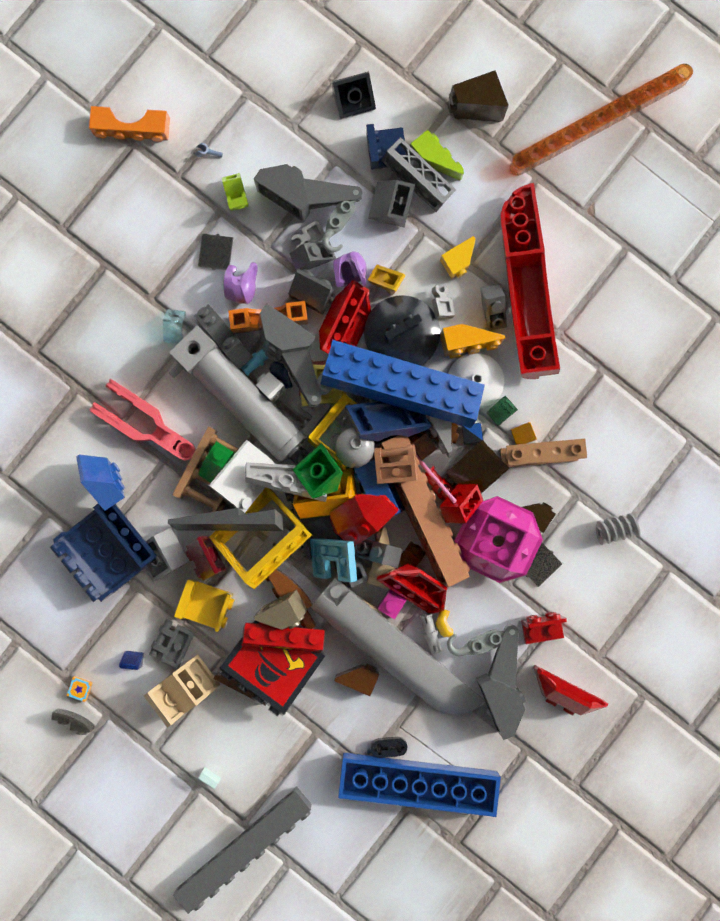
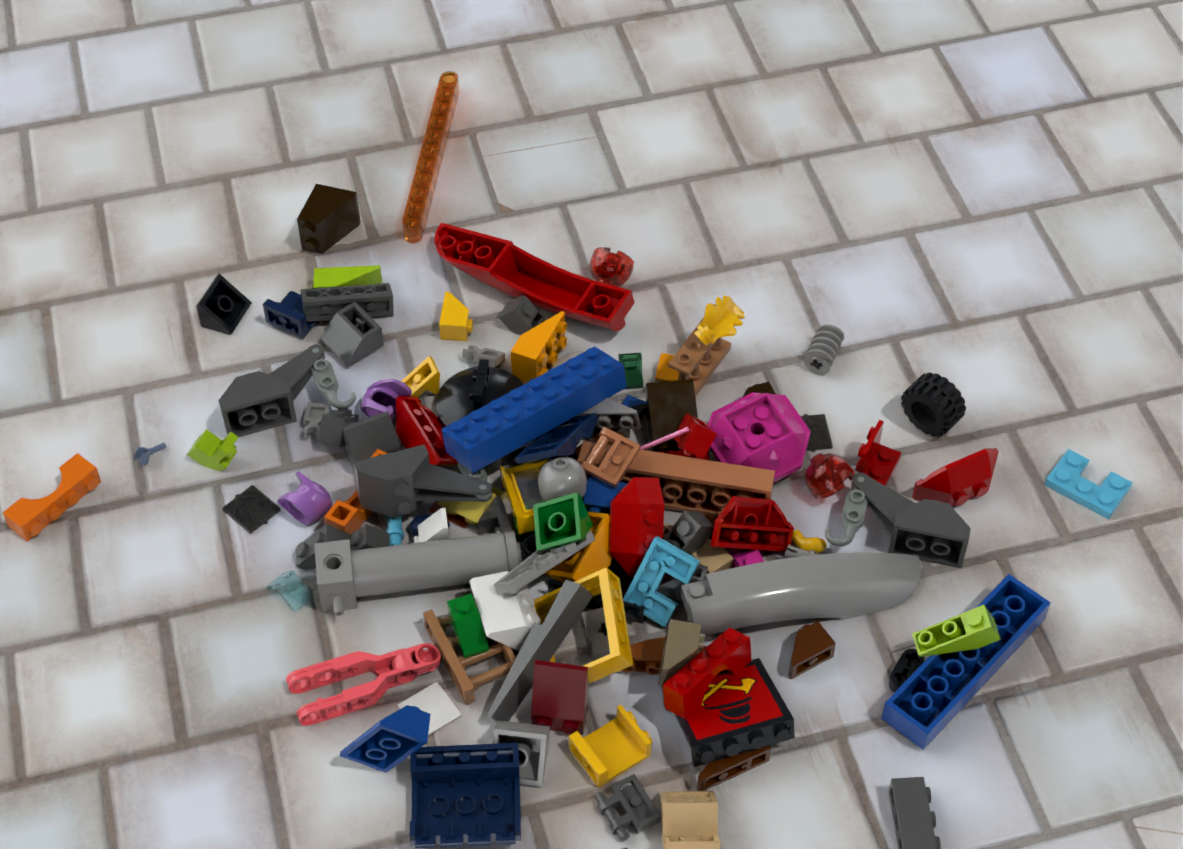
camera: 50 degrees left, 35 degrees down
(156, 476) = (437, 703): none -> white sticker
(422, 776) = (959, 633): none -> lime slope
(502, 607) = (827, 474): none -> clear red cylinder
(566, 457) = (719, 320): none -> yellow plant
(580, 332) = (610, 267): none -> clear red cylinder
(614, 640) = (933, 404): none -> black tyre
(620, 788) = (1068, 481): none -> medium azure plate

